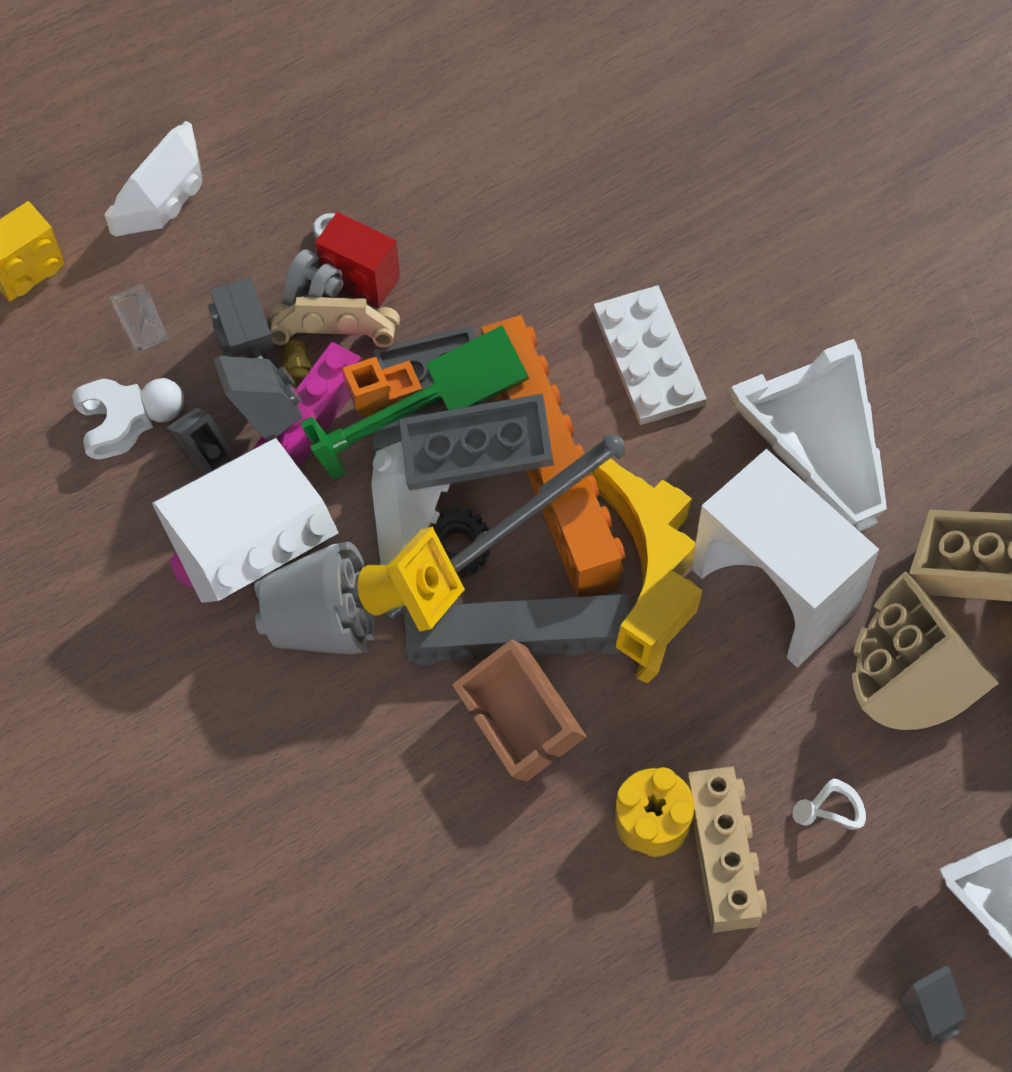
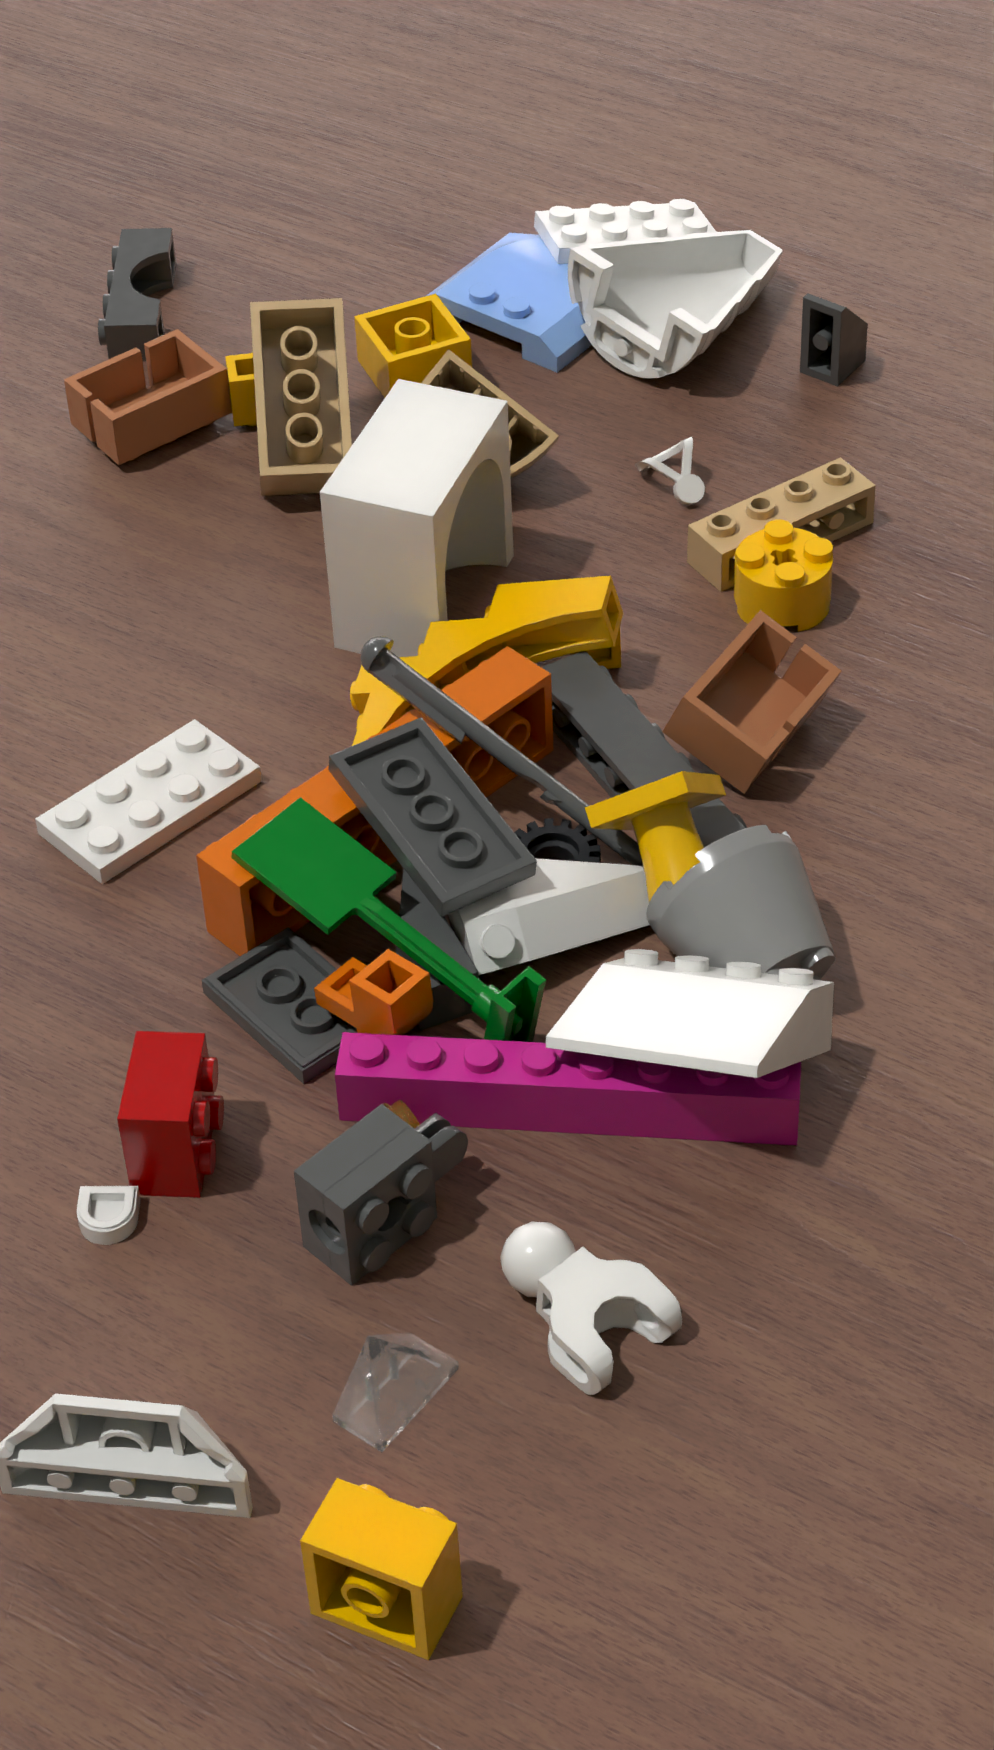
camera: 115 degrees left, 20 degrees down
(201, 441) = (578, 1182): dark grey slope -> none
(260, 393) = (485, 1073): dark grey slope -> none
(309, 280) = (246, 1150): light grey brick -> none
(333, 317) = (272, 1069): tan plate -> none
(822, 430) = (183, 597): white cone -> none

